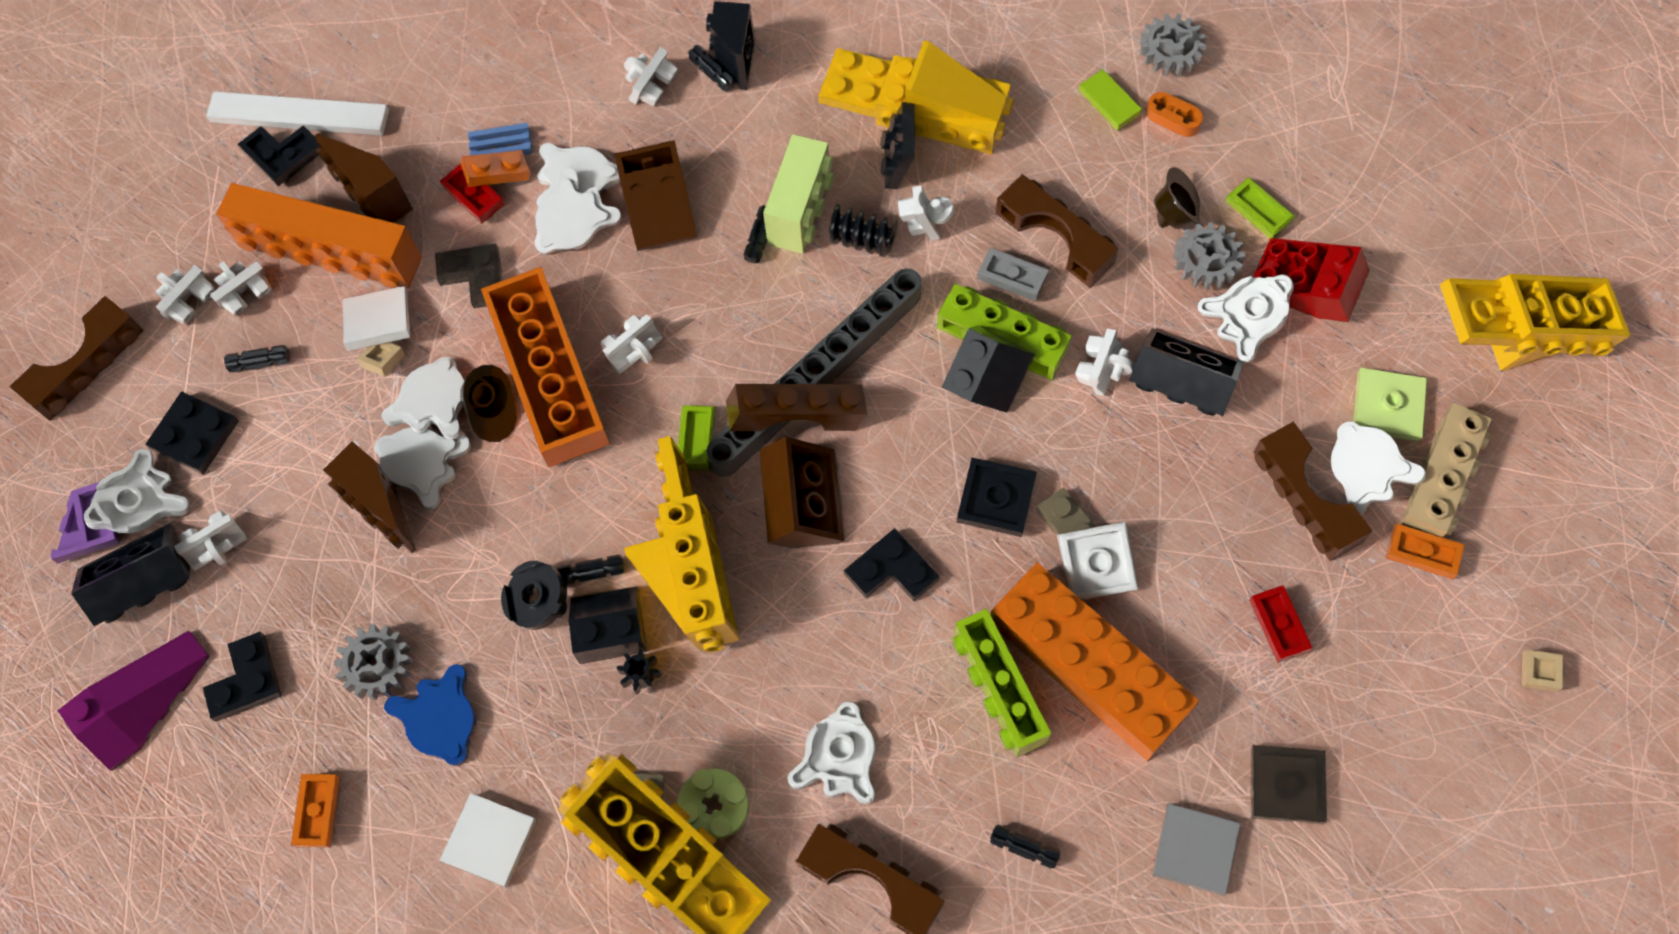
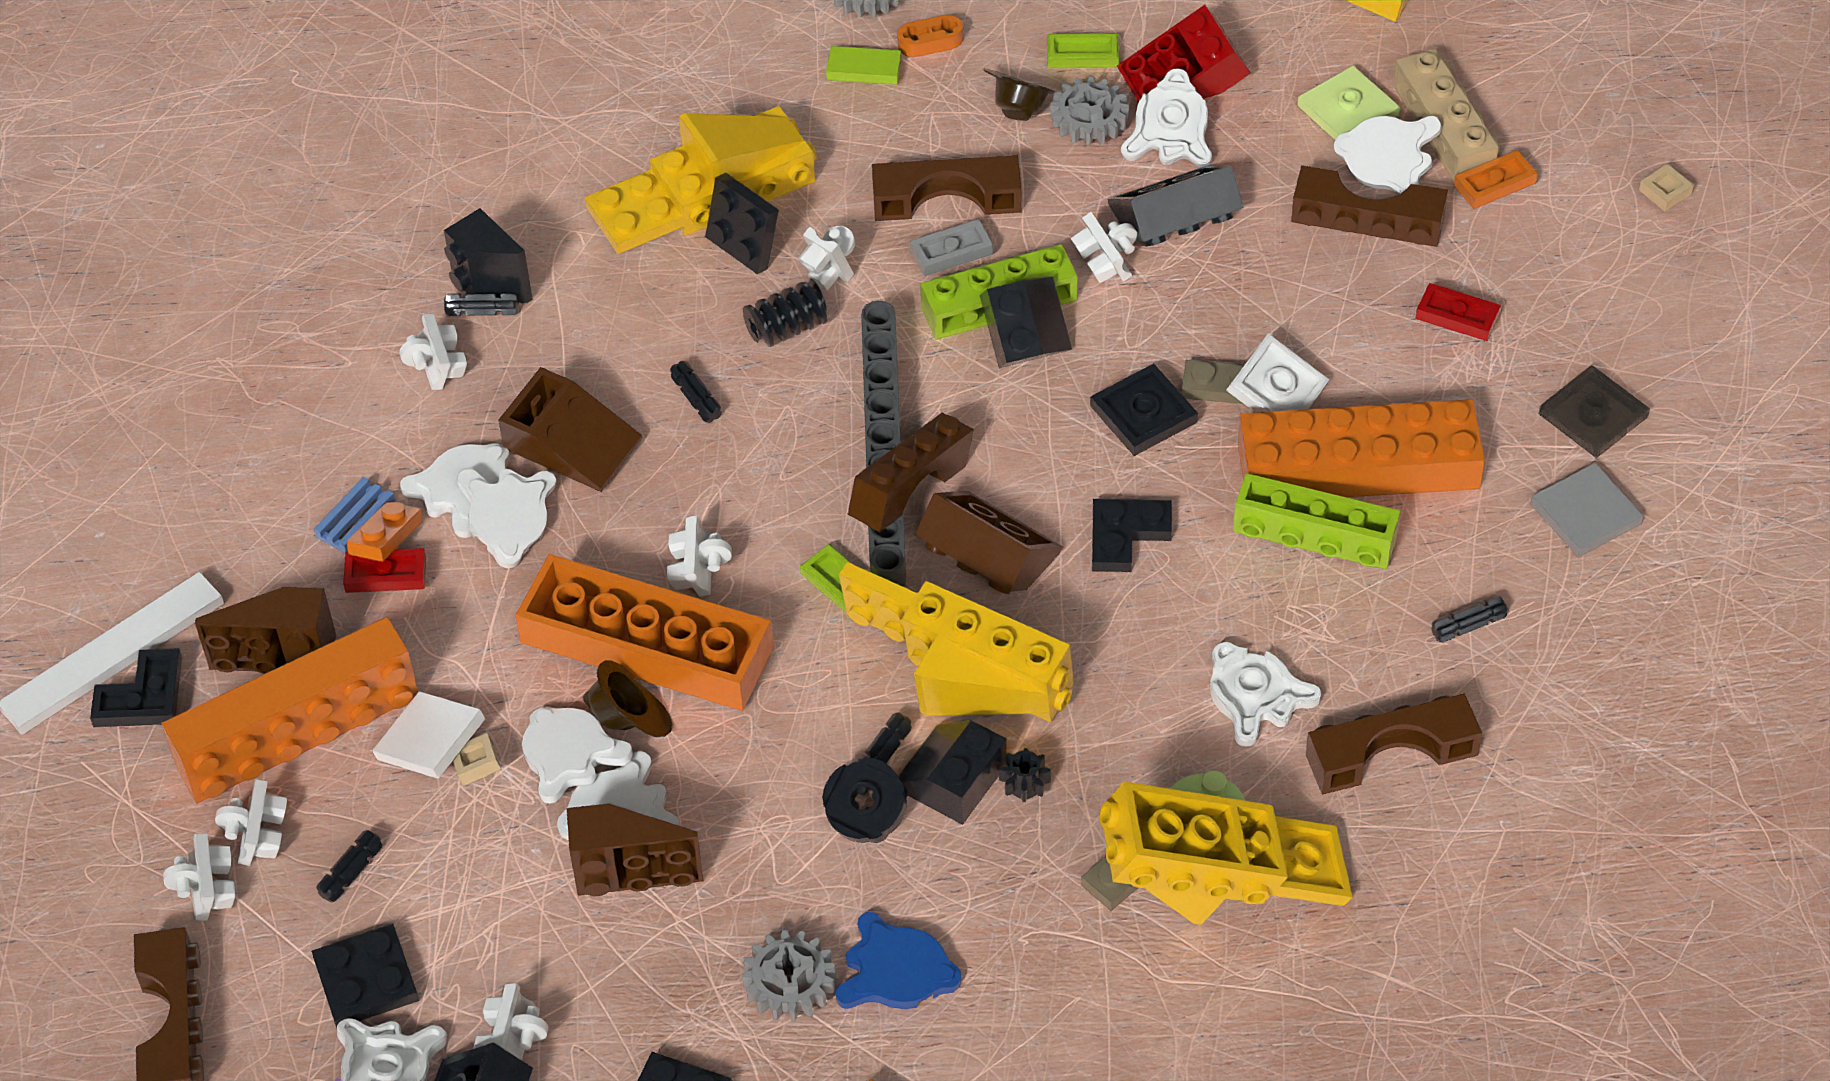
camera: 50 degrees left, 15 degrees down
(474, 265) = (465, 622): clear smoke plate -> none
(488, 840) = (1059, 1007): white tile -> none
(798, 194) = (702, 324): yellowish green brick -> none

